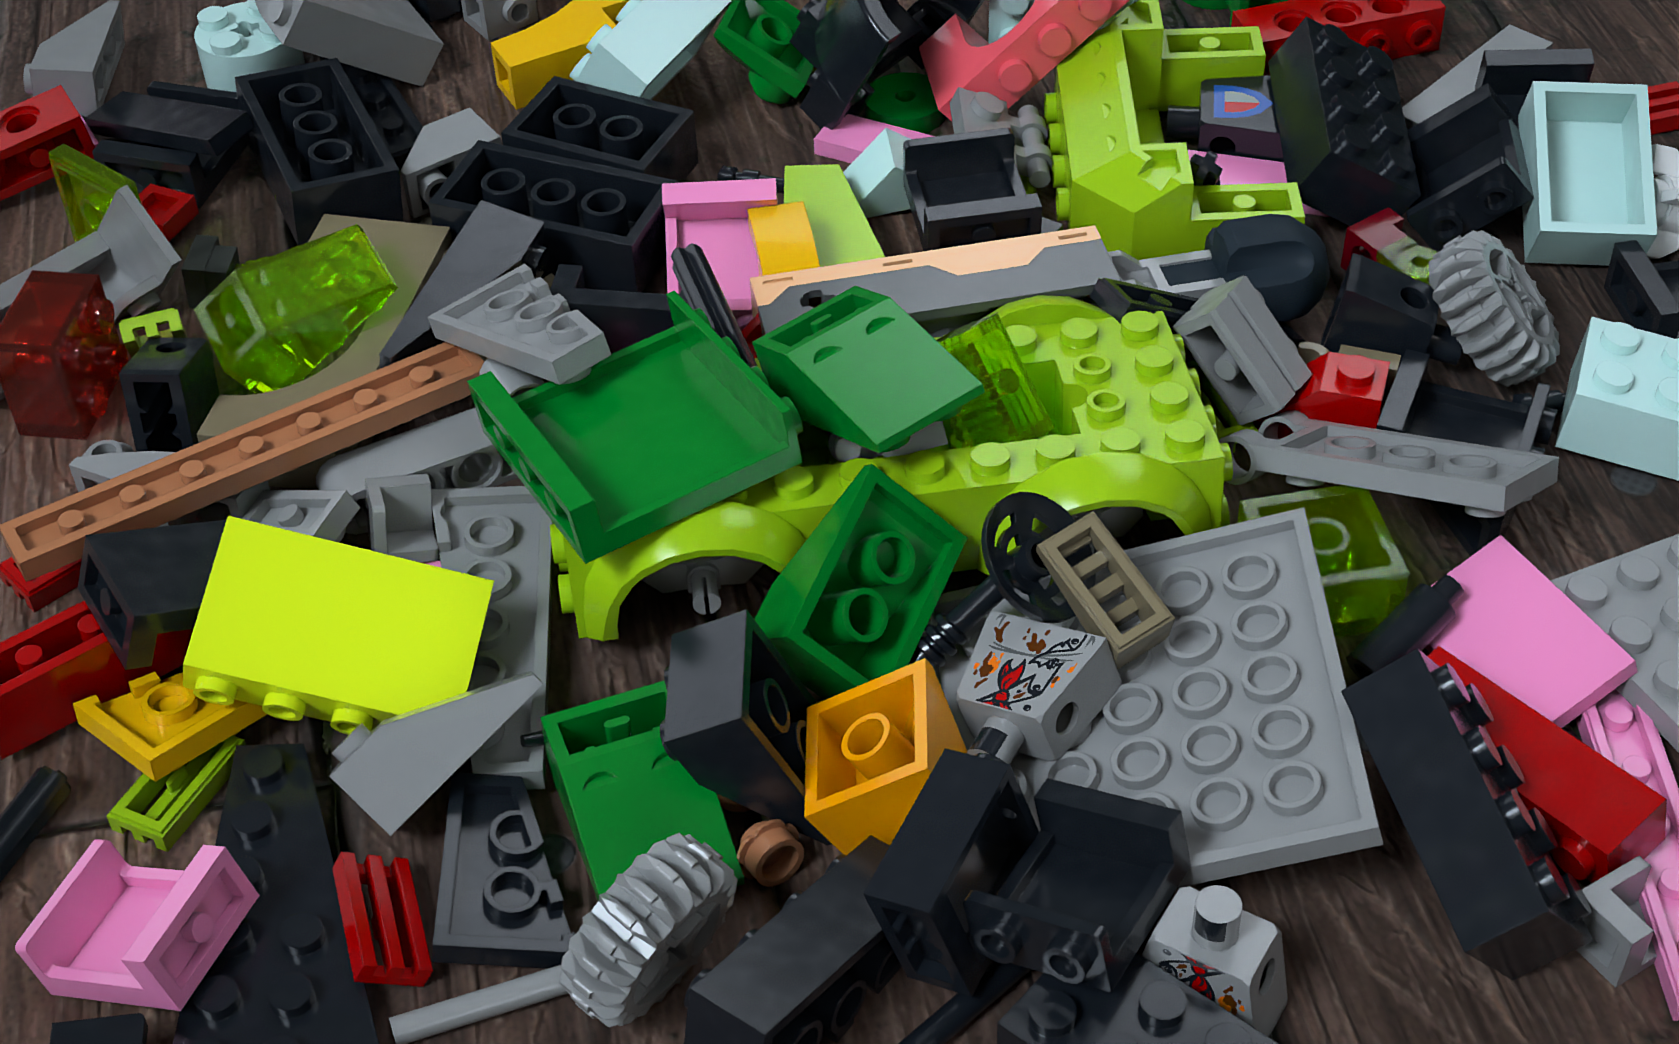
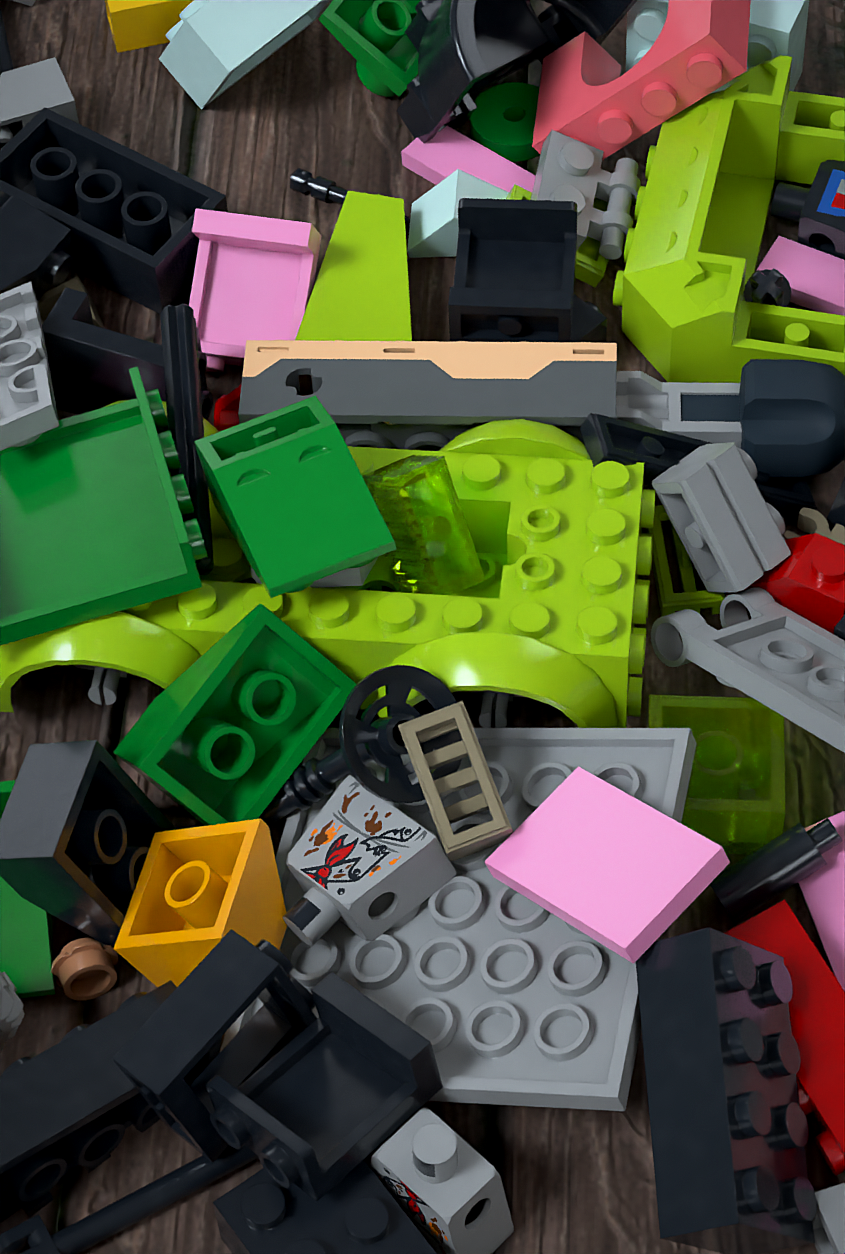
camera: 15 degrees right, 10 degrees up
(607, 129) = (179, 118): black brick -> none
(782, 238) = (305, 295): yellow slope -> none
(1282, 628) = (607, 863): none -> bright pink tile

